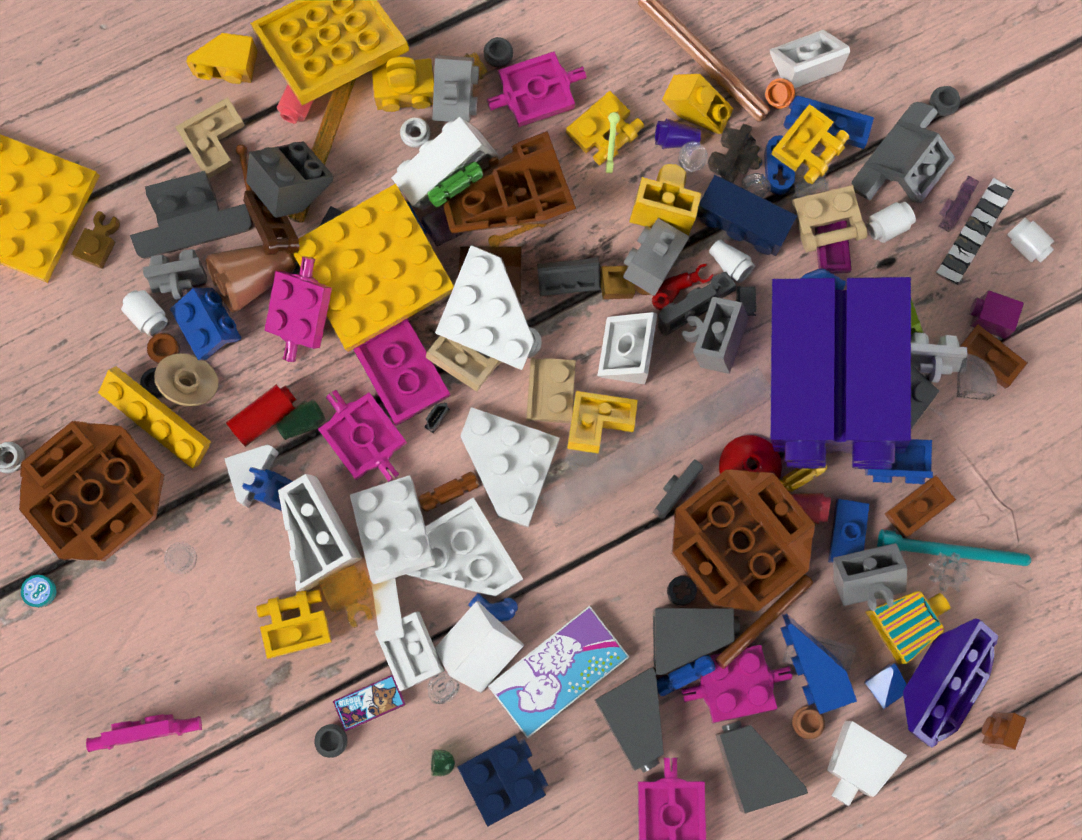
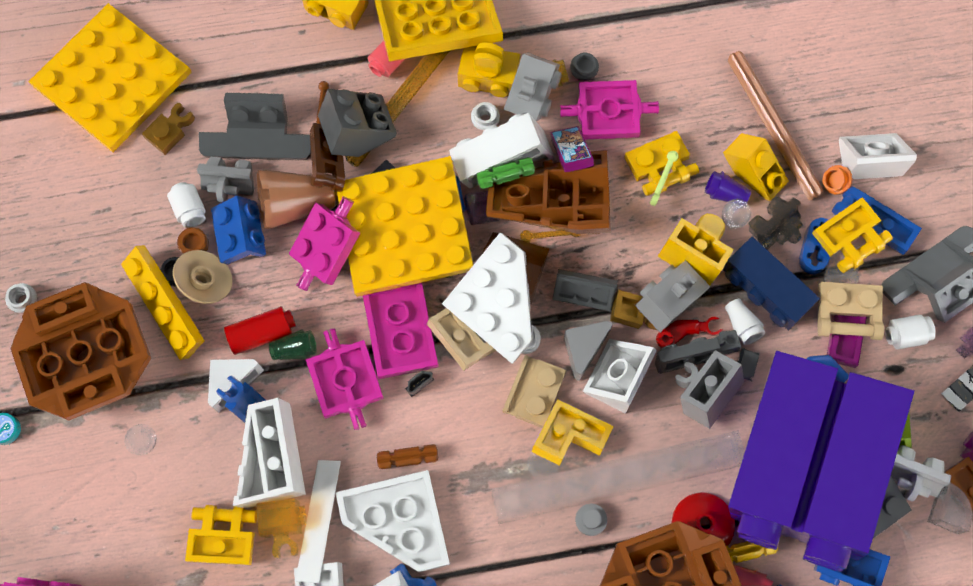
camera: 20 degrees right, 5 degrees down
(203, 135) = (295, 61): tan plate -> none
(392, 529) = (341, 476): white plate -> none
(509, 462) = (473, 447): white plate -> none
(512, 140) = (572, 149): none -> tile
(584, 330) = (583, 345): none -> light grey slope
(643, 495) = (591, 519): none -> light grey plate
(676, 488) = (624, 523): dark grey plate -> none
(756, 184) = (789, 257): clear plate -> none

